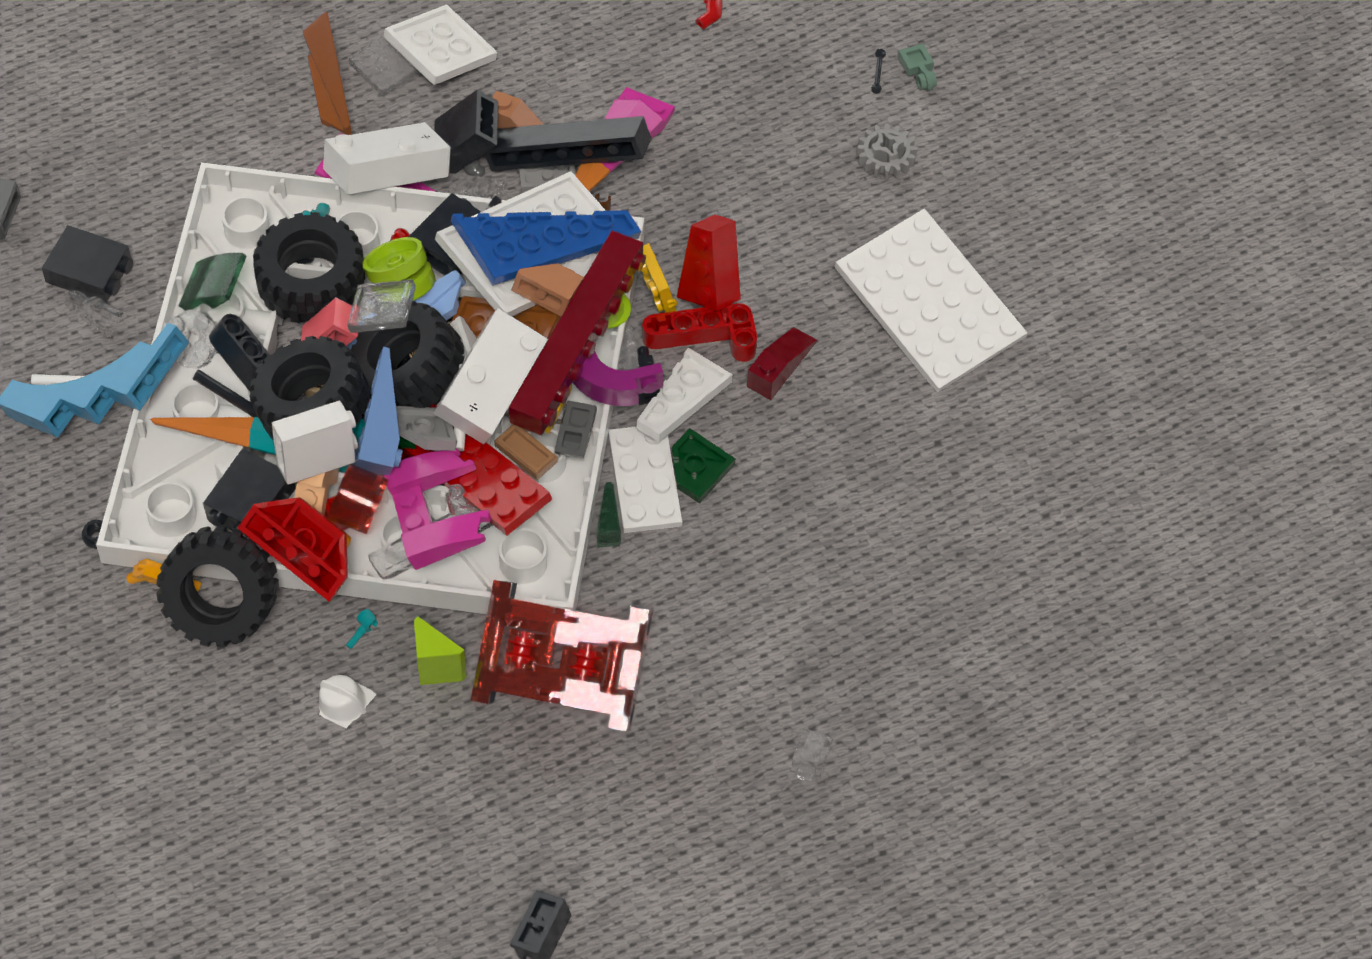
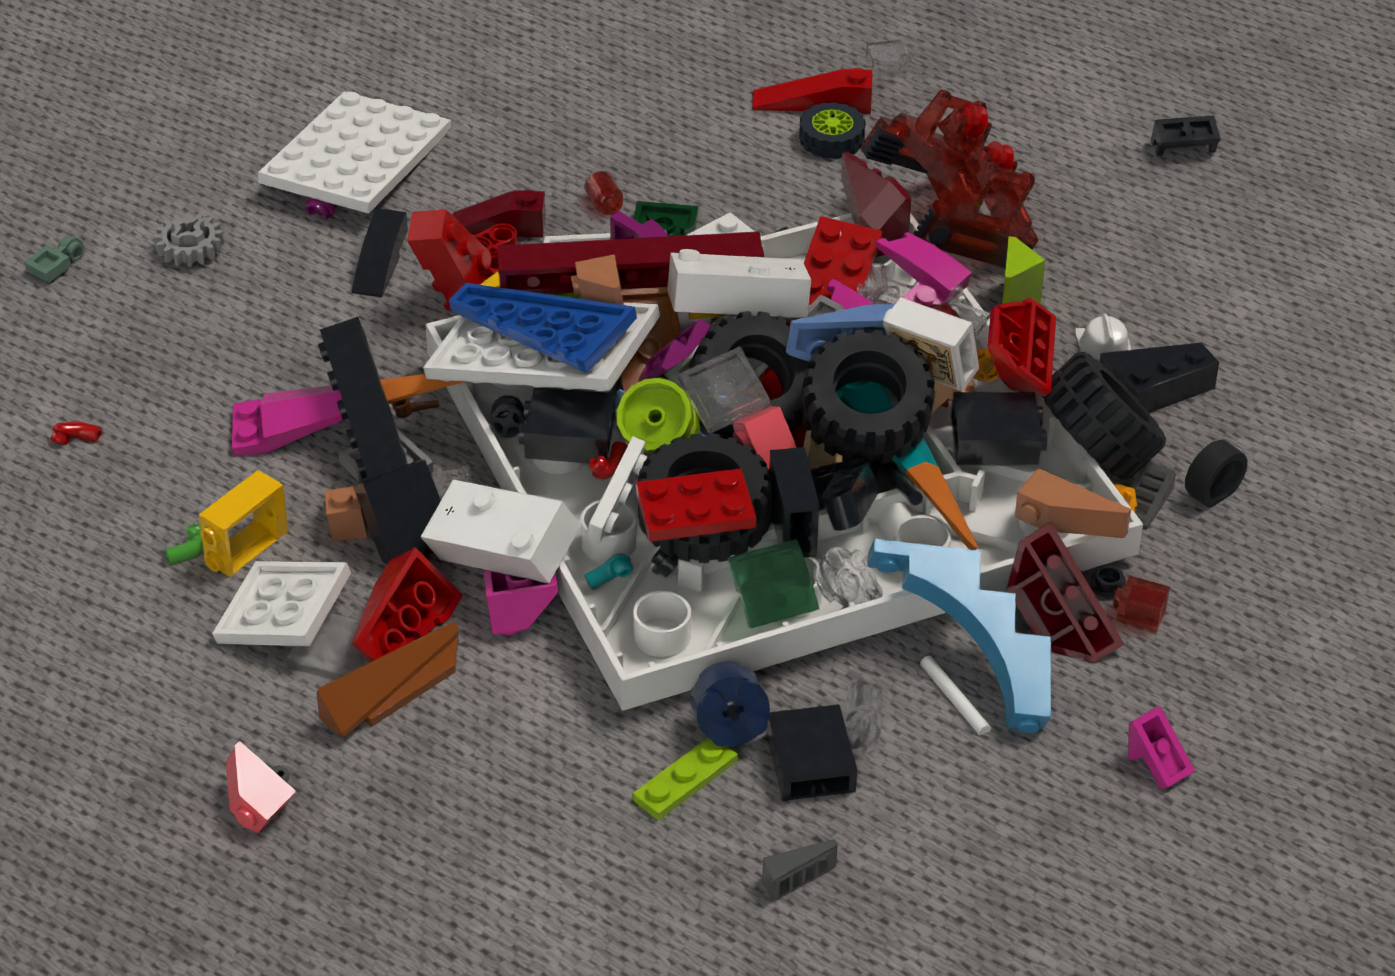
camera: 120 degrees left, 15 degrees down
(55, 533) = (1141, 603): none -> clear red brick
(83, 475) = (1059, 599): none -> dark red wedge
(128, 657) = (1216, 473): none -> black tyre
(129, 195) = (684, 778): none -> lime plate
(139, 488) = (1069, 507): none -> nougat slope
(147, 224) = (732, 723): none -> dark blue brick
(162, 631) = (1156, 479): none -> dark grey slope
(264, 695) = (1164, 373): none -> black wedge
(265, 310) = (794, 499): none -> black brick
(277, 227) = (695, 505): none -> red plate
(353, 218) = (618, 491): none -> white wing
(380, 96) = (404, 605): none -> red wedge
(459, 312) = (675, 351): none -> magenta slope
(525, 47) = (257, 495): none -> yellow window
(543, 30) = (190, 549): none -> bright green arm
(548, 558) = (874, 199): none -> dark red wedge
(741, 656) = (832, 130): none -> black wheel
(764, 444) = (604, 193): none -> clear red brick
(787, 261) = (380, 252): none -> black slope
(803, 685) = (839, 86): none -> red wedge
(876, 87) = (101, 283): black hinge -> none

